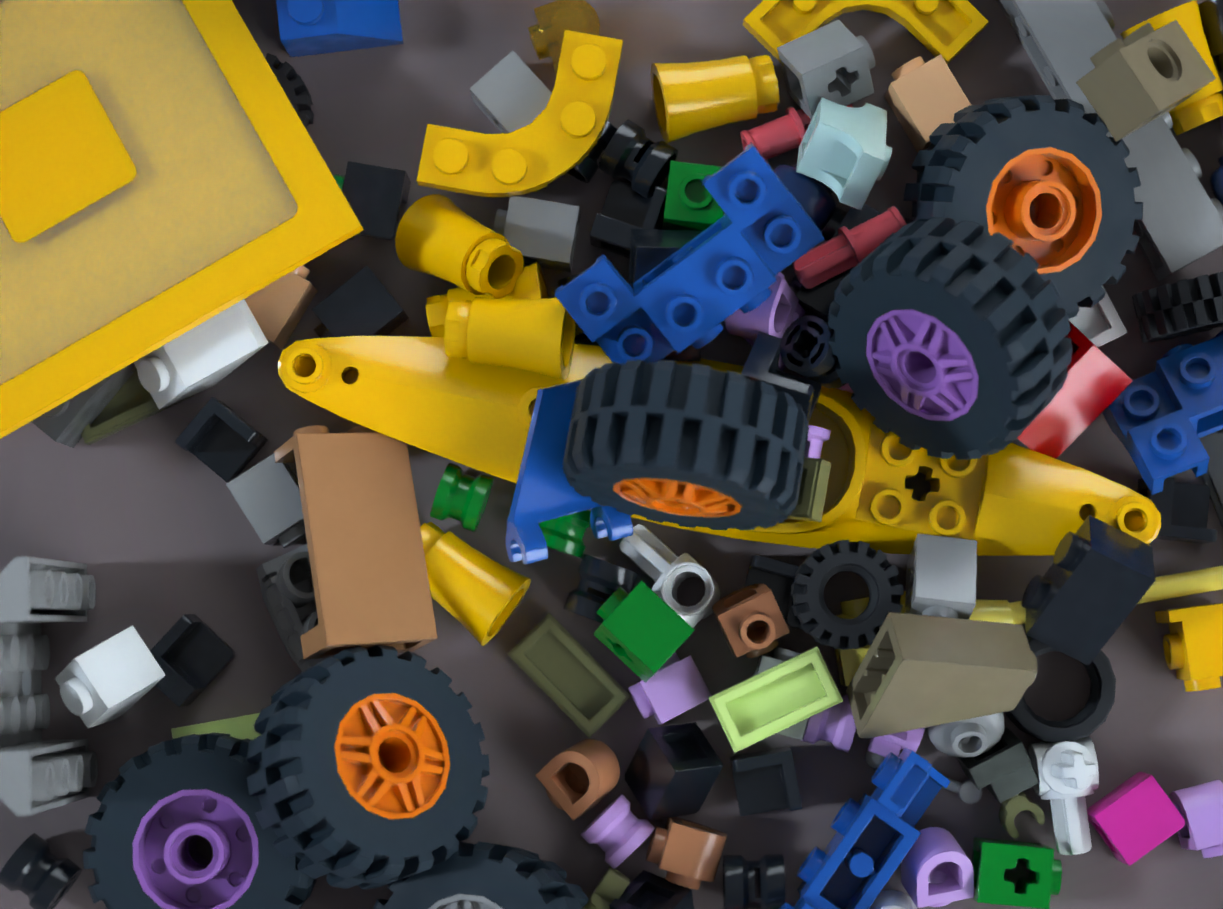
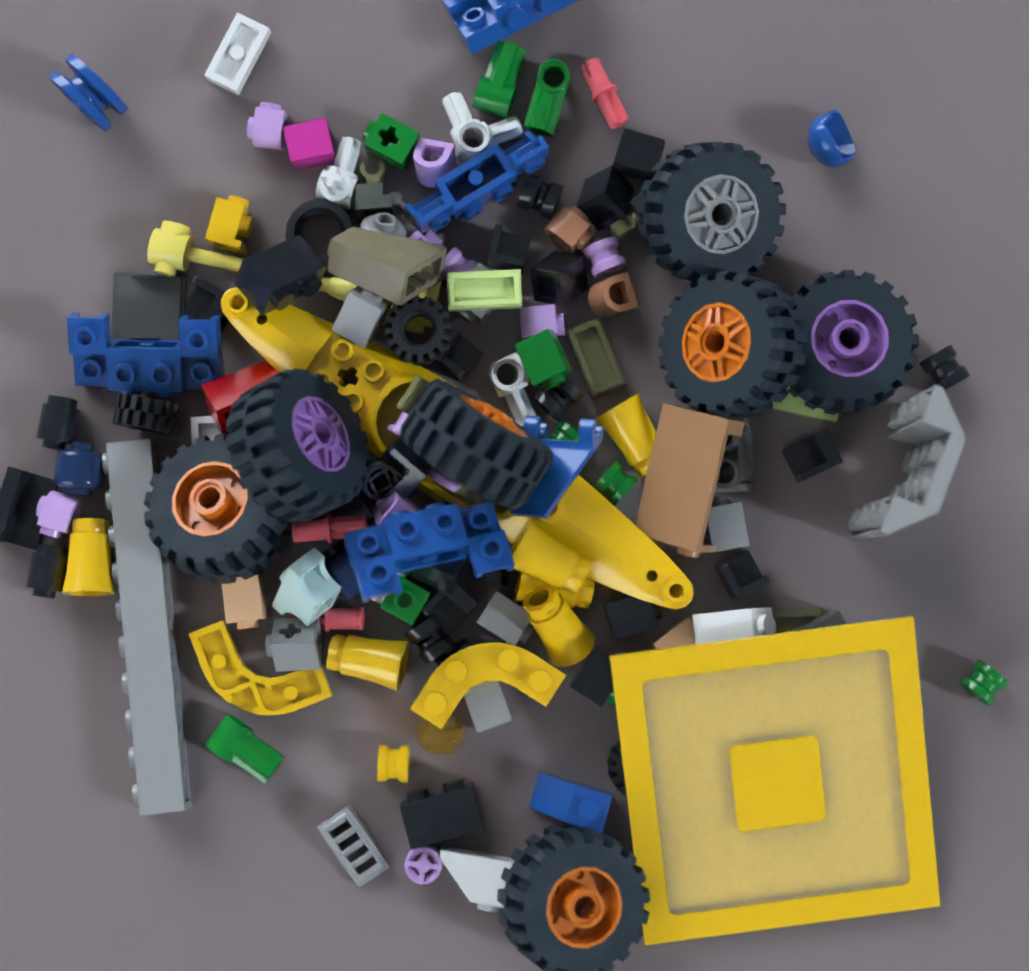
camera: 160 degrees left, 0 degrees up
(109, 678) = (861, 458): white slope -> none
(750, 620) = (479, 342): nougat plate -> none
(1143, 77) = (115, 553): dark tan brick -> none

